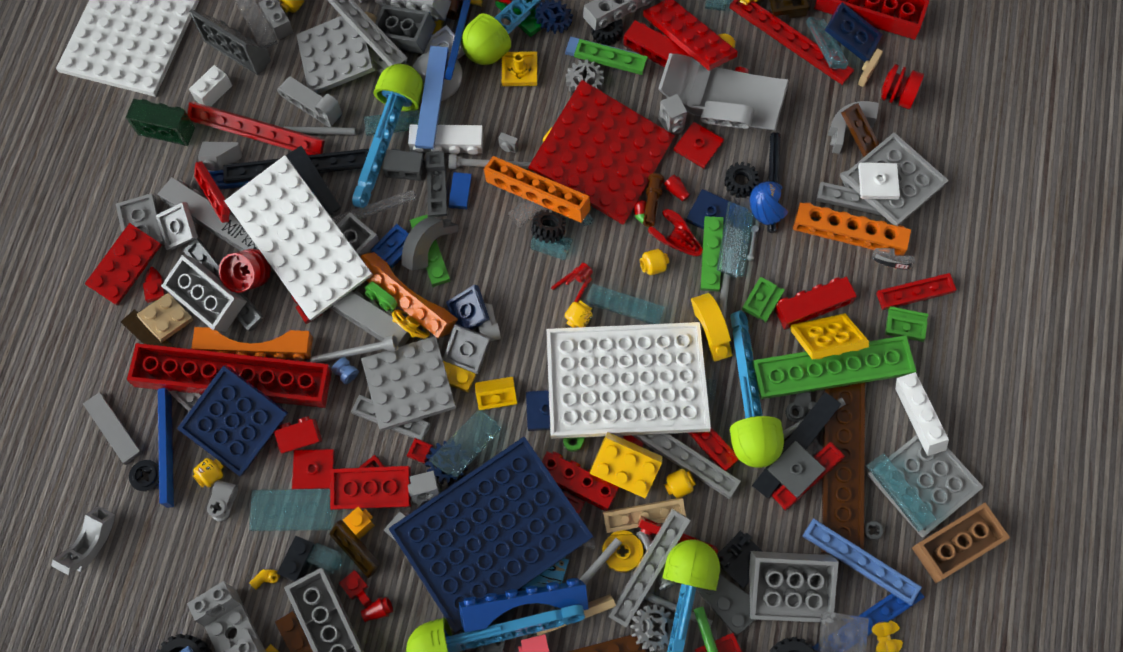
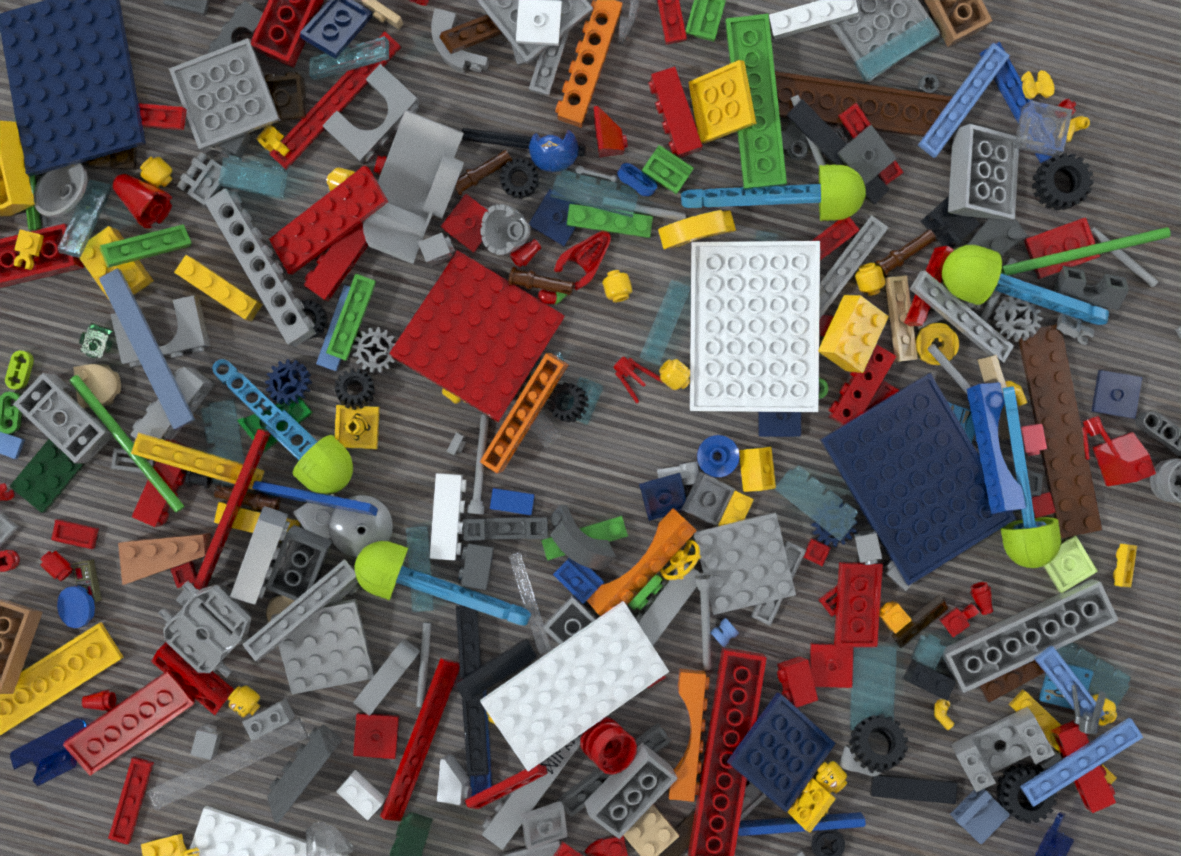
camera: 90 degrees left, 20 degrees up
(164, 617) = (979, 815): none -> sand blue bracket
(173, 62) = (326, 840): none -> clear slope
(183, 451) = (811, 805): none -> yellow plate
(193, 554) = (914, 789): none -> black tile
(244, 491) = (890, 731): none -> black tyre
(260, 98) = (376, 735): none -> red plate
(431, 97) = (398, 531): medium blue tile -> none
(506, 347) = (728, 460): none -> blue dish
(545, 69) = (355, 400): none -> black tyre
(582, 632) = (1020, 397): none -> yellow arm
(695, 166) = (504, 229): none -> light grey hair
(702, 508) = (897, 257): none -> reddish brown pin
(738, 143) = (472, 177): none -> reddish brown pin
(751, 273) = (637, 179): none -> blue plate
(757, 62) = (364, 143): none -> light grey arch
(787, 242) = (608, 135): none -> red slope

